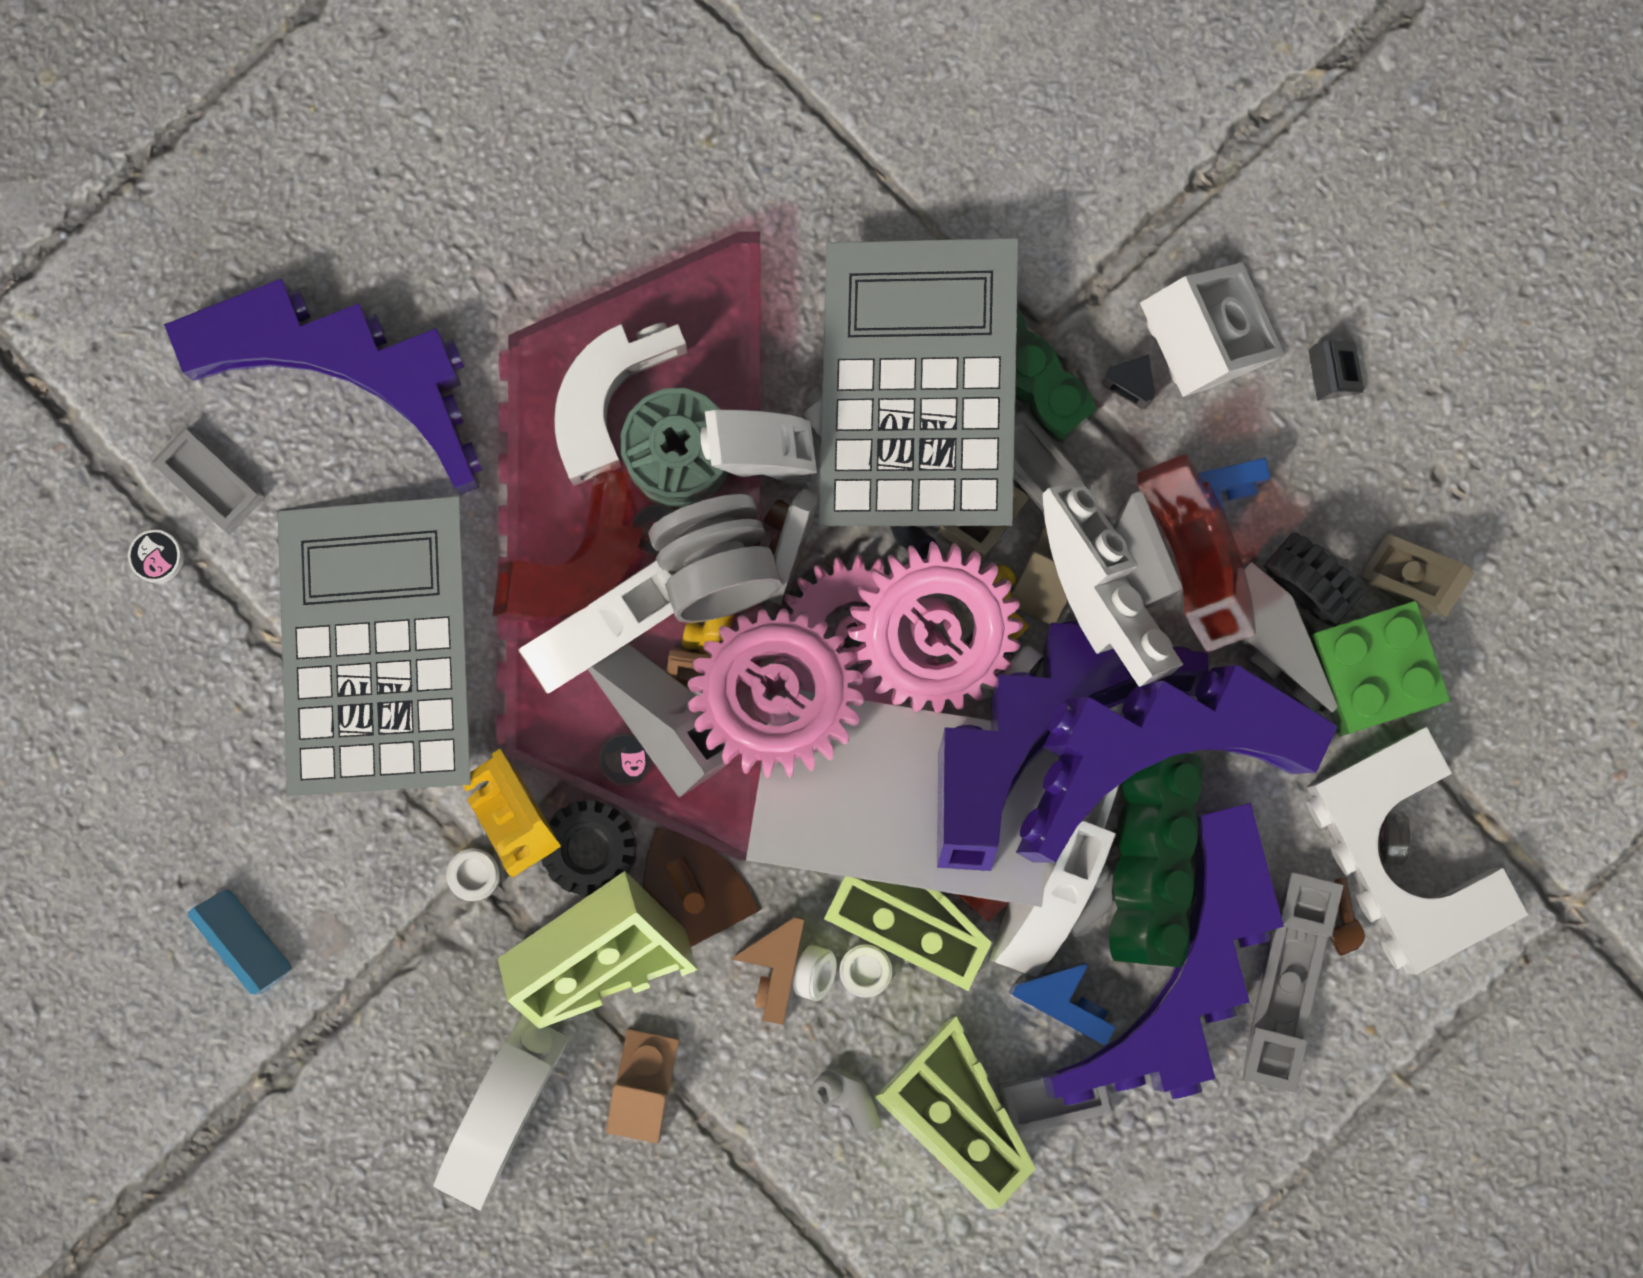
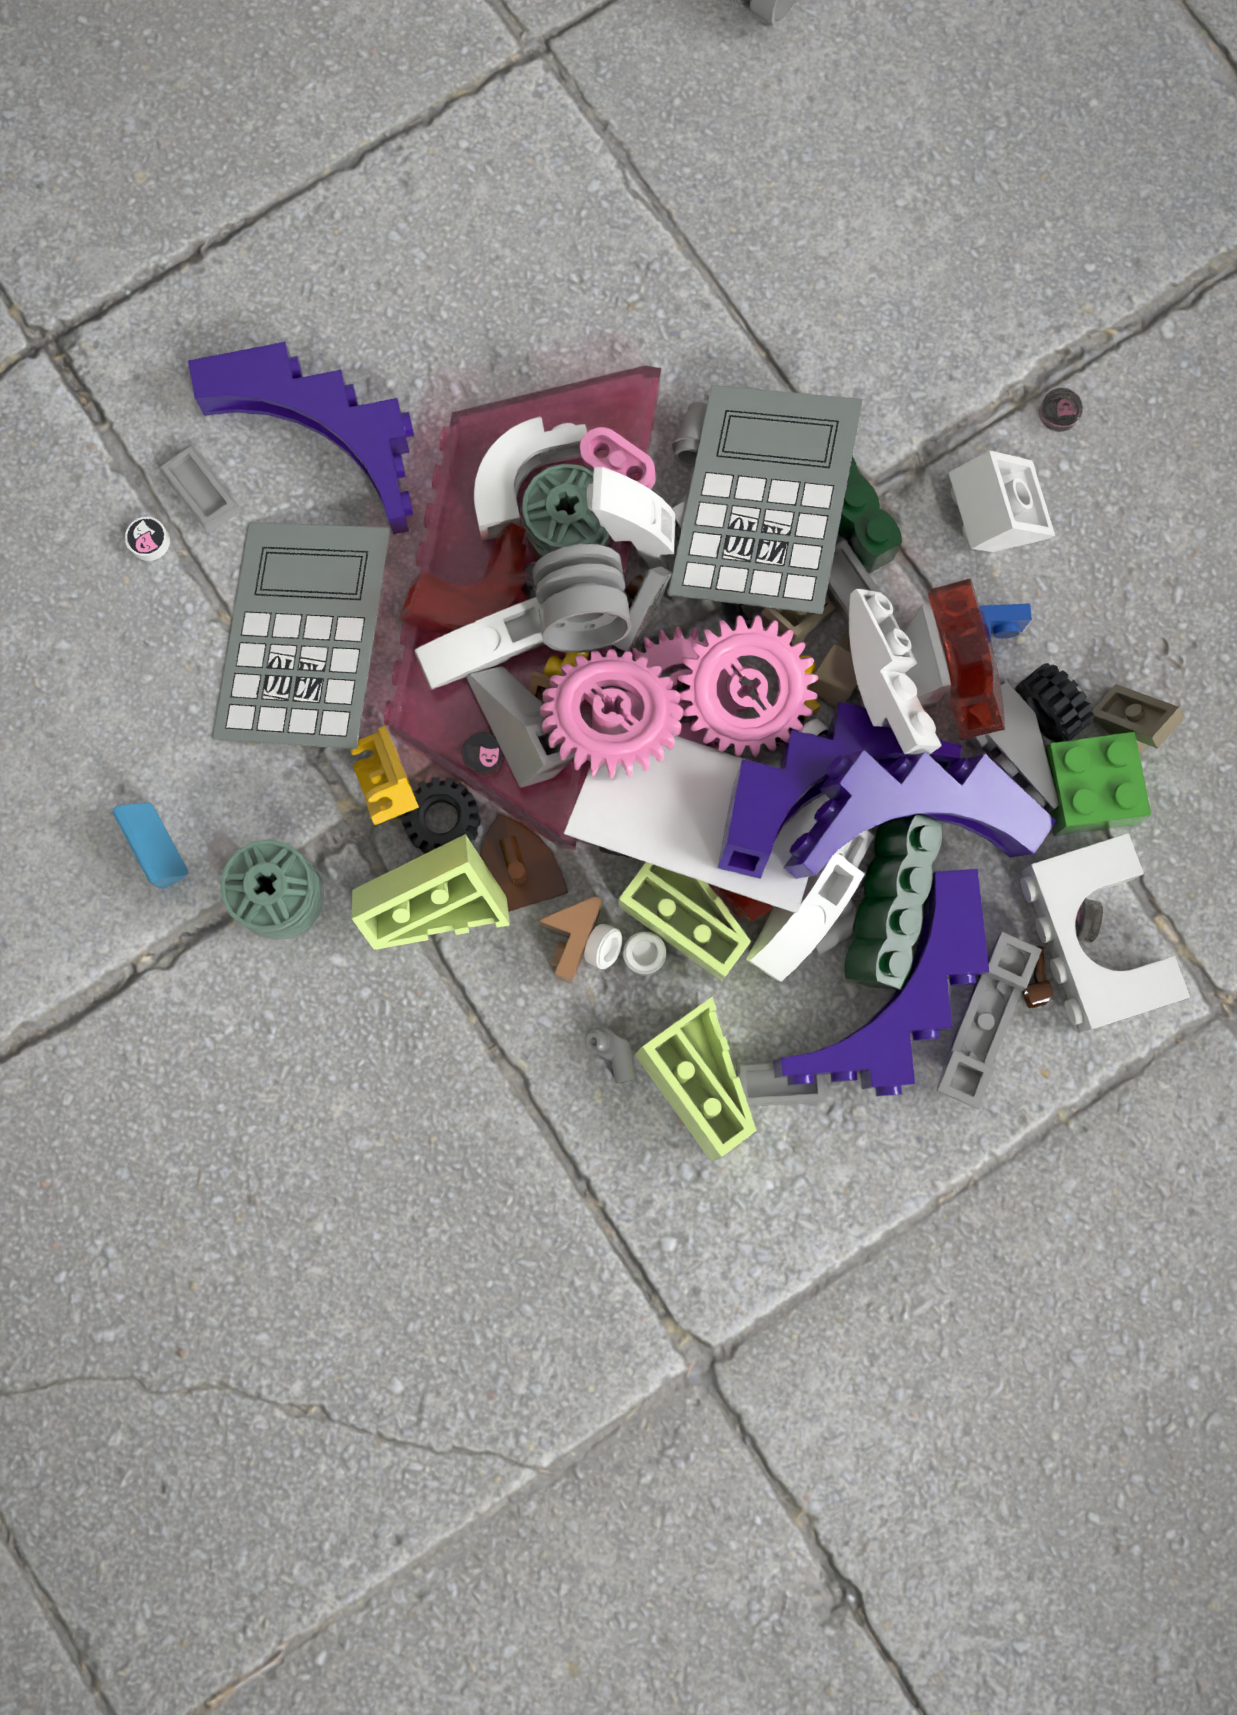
camera: 10 degrees right, 5 degrees down
(434, 977) = (297, 885): none -> sand green wheel
(473, 874) = (346, 824): white tile -> none
(499, 1112) = (326, 1011): white arch -> none
(642, 1085) = (448, 1014): medium nougat slope -> none
(729, 368) = (622, 455): none -> bright pink plate
(809, 305) = (689, 434): none -> light grey cone
(1052, 995) = (790, 998): blue slope -> none
(1132, 381) = (931, 531): black slope -> none
(1268, 189) = (1060, 409): none -> clear smoke tile
(1335, 369) = (1093, 552): black slope -> none

